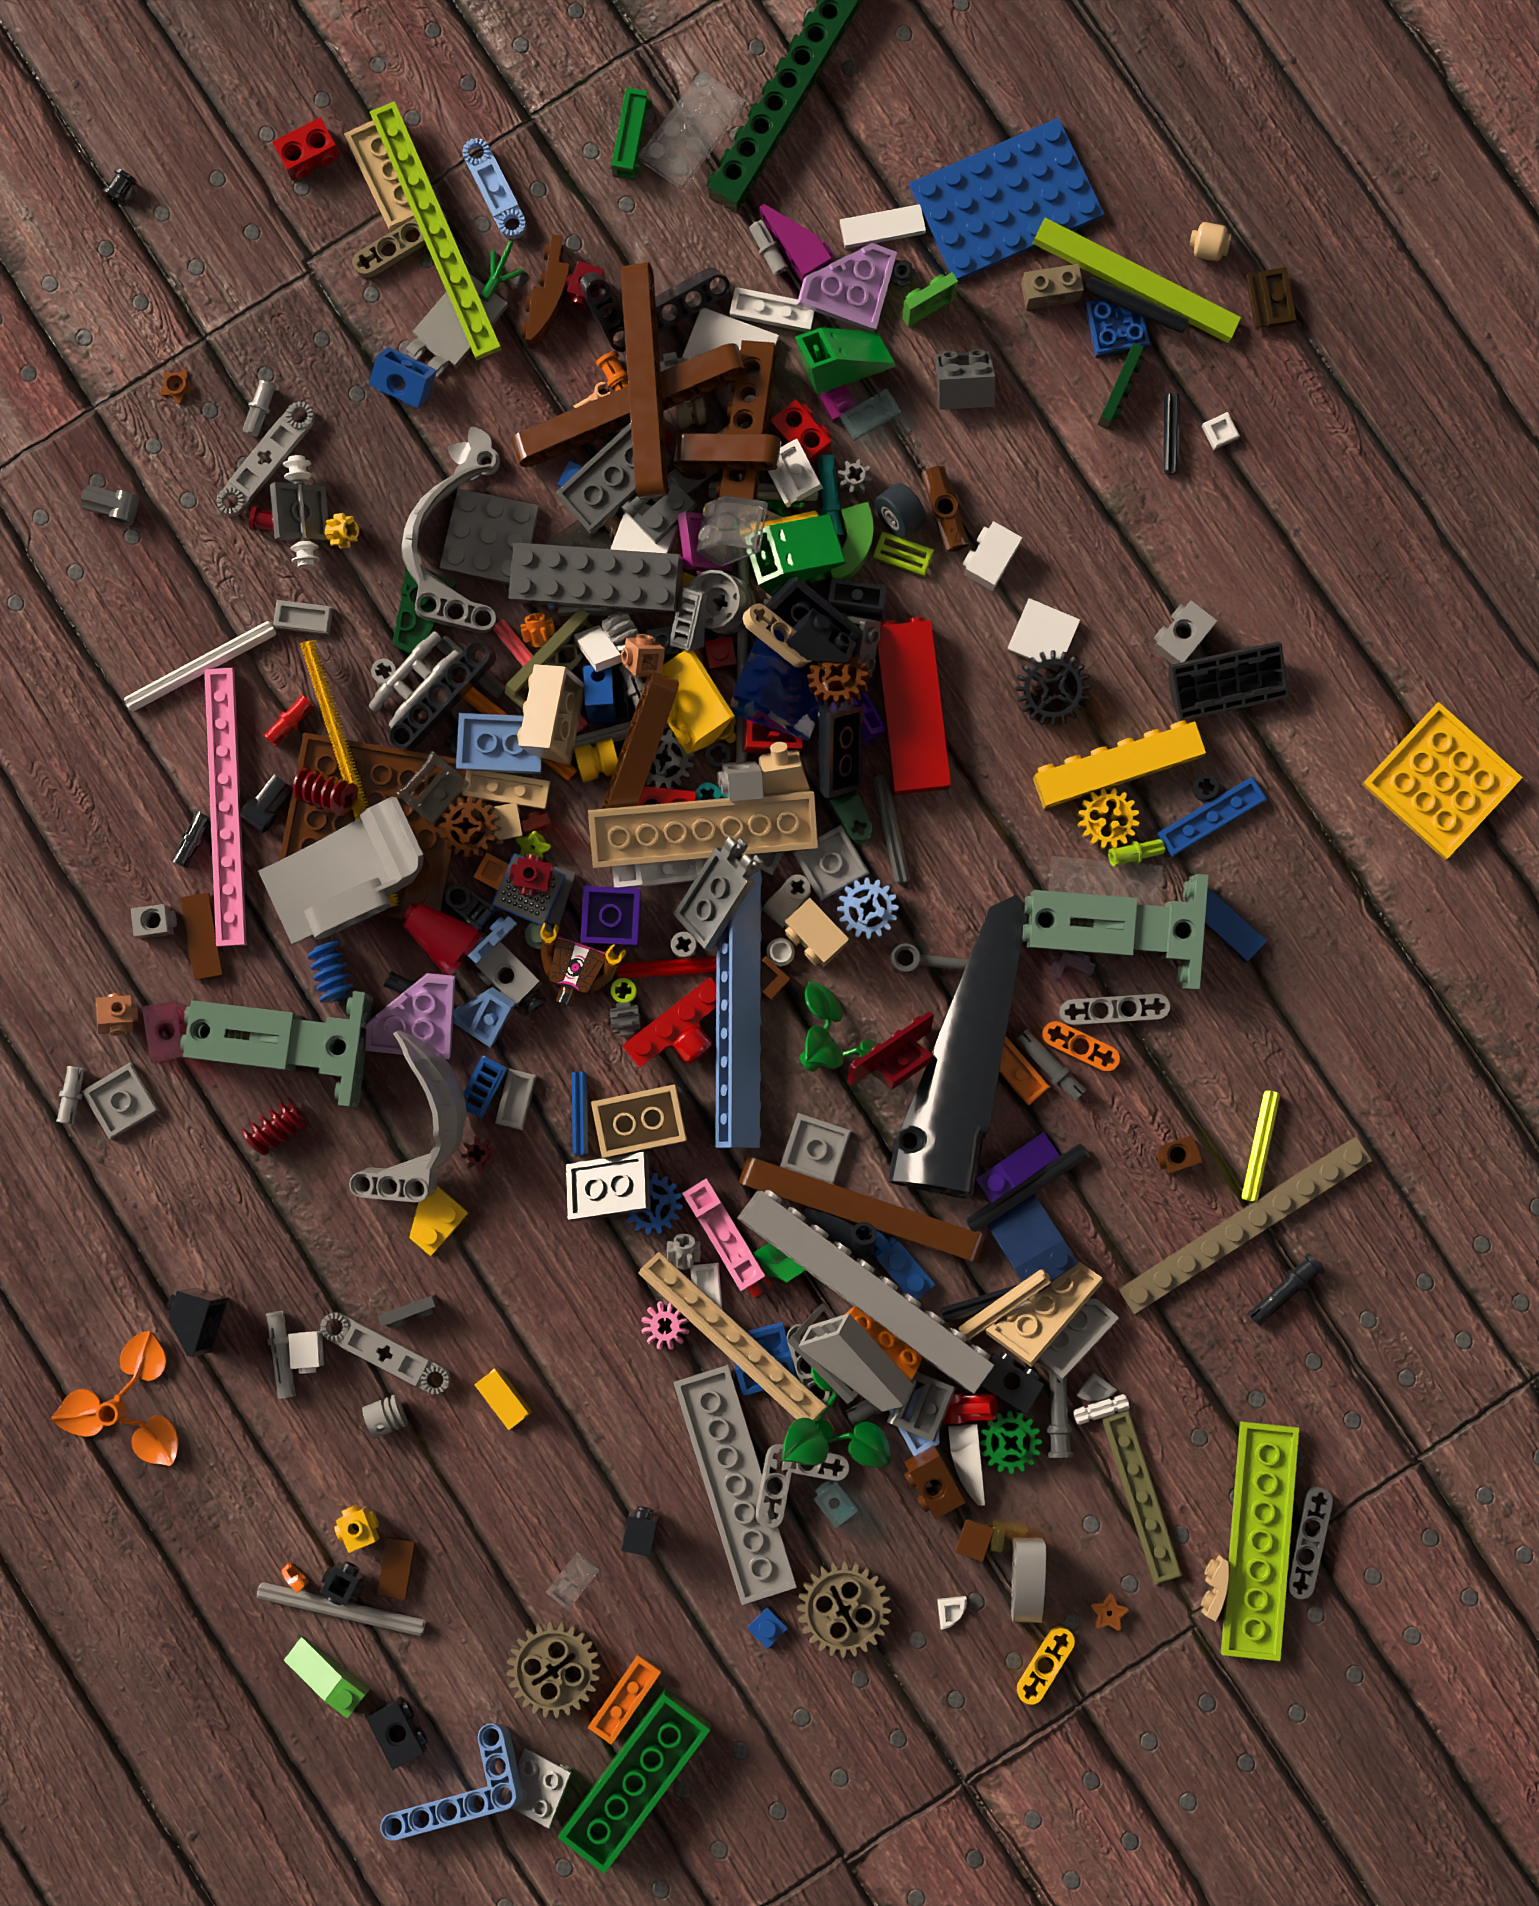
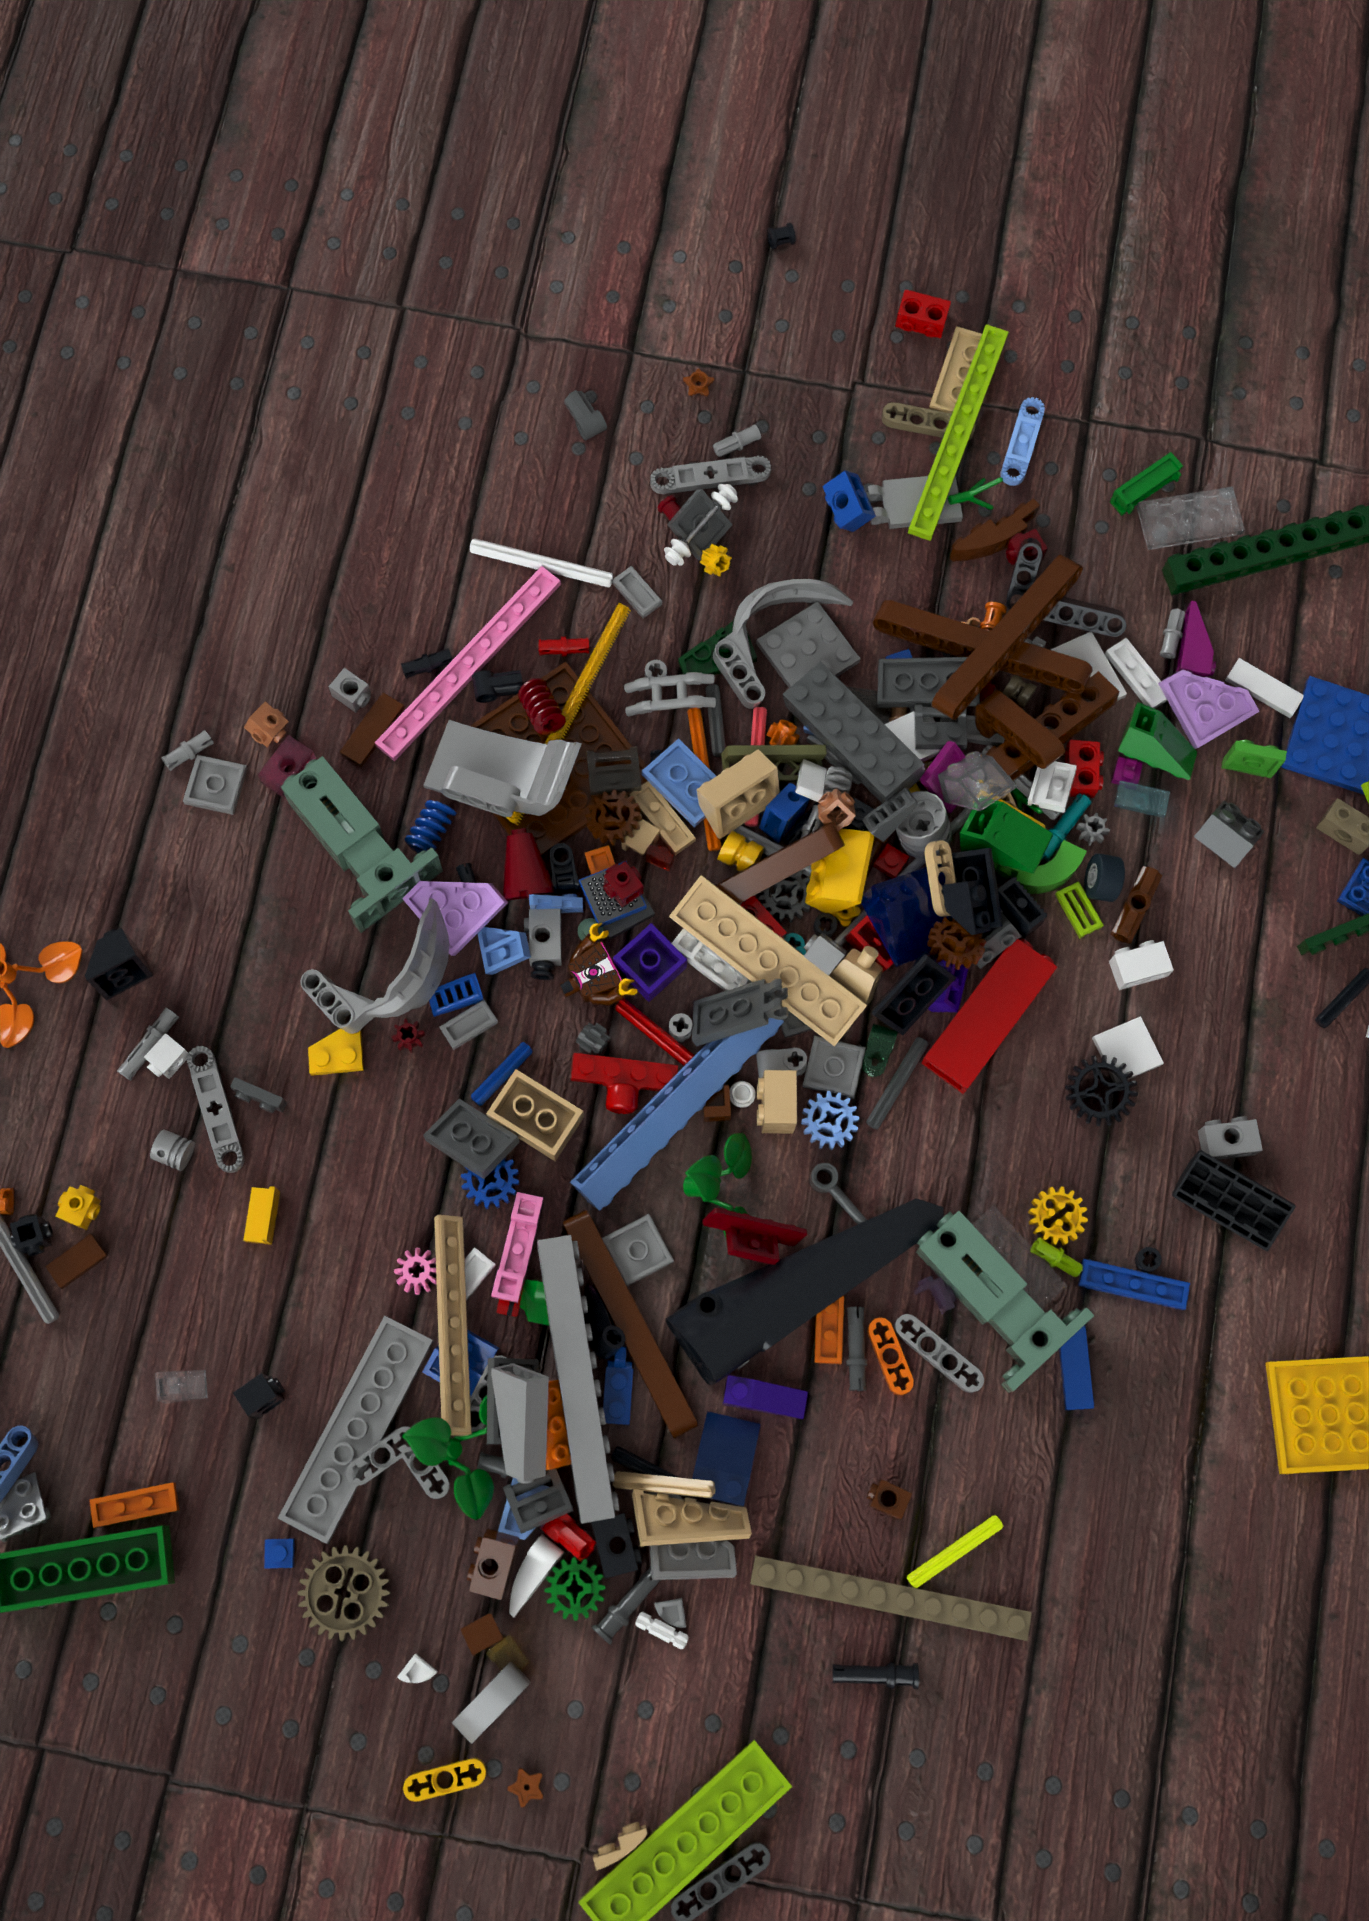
camera: 35 degrees right, 10 degrees down
(275, 1128) = (294, 894): dark red piece -> none
(429, 699) = (688, 725): black beam -> none
(474, 452) = (854, 589): light grey plate -> none
(532, 839) = (649, 868): lime plate -> none
(538, 1648) = (113, 1410): dark tan gear -> none
(618, 984) = (611, 1012): lime bush -> none
(683, 1251) = (479, 1232): light grey gear -> none
(843, 1511) = (414, 1521): clear light blue brick -> none
(902, 280) = (1247, 734): black plate -> none
(1027, 1188) = (759, 1419): black axle -> none
(1118, 765) = (1100, 1186): yellow brick -> none
(1141, 1497) = (630, 1724): olive tile -> none

